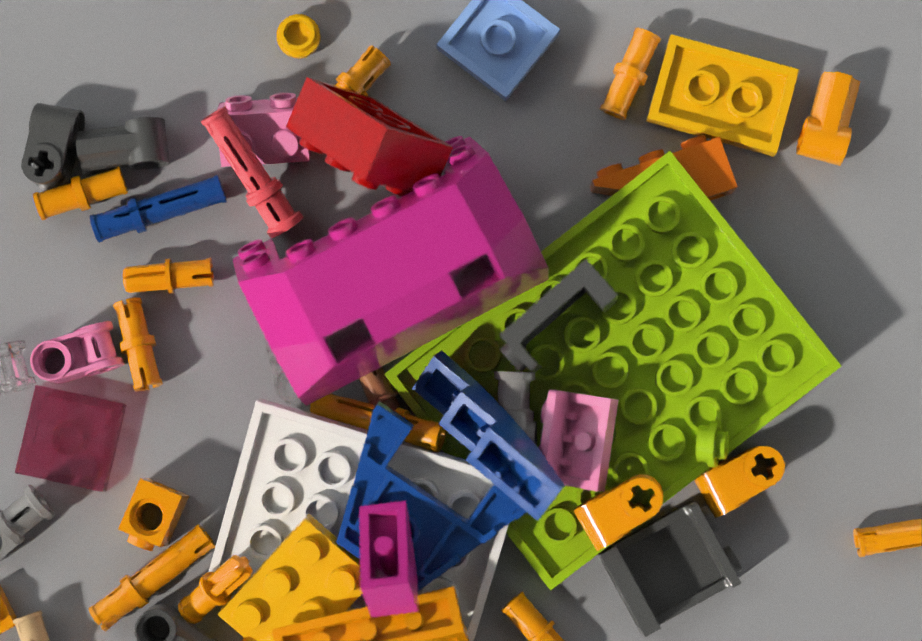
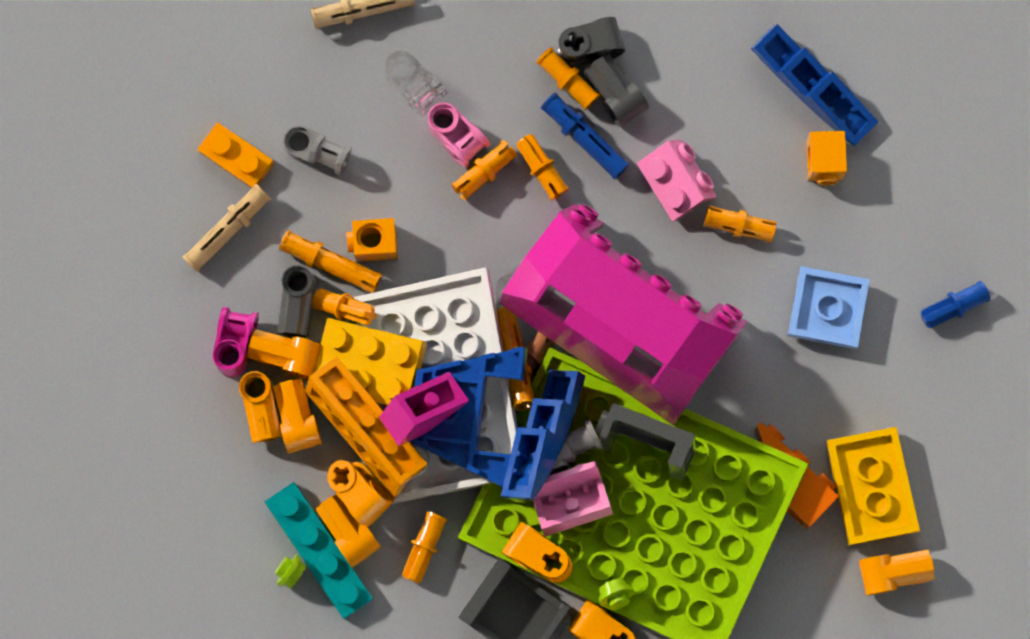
camera: 65 degrees right, 5 degrees down
(70, 438) = (396, 159): clear pink plate -> none
(262, 190) = (634, 199): coral pin -> none
(298, 36) = (756, 169): yellow plate -> none
(366, 138) = (705, 248): red brick -> none
(630, 73) = (853, 413): light orange pin -> none

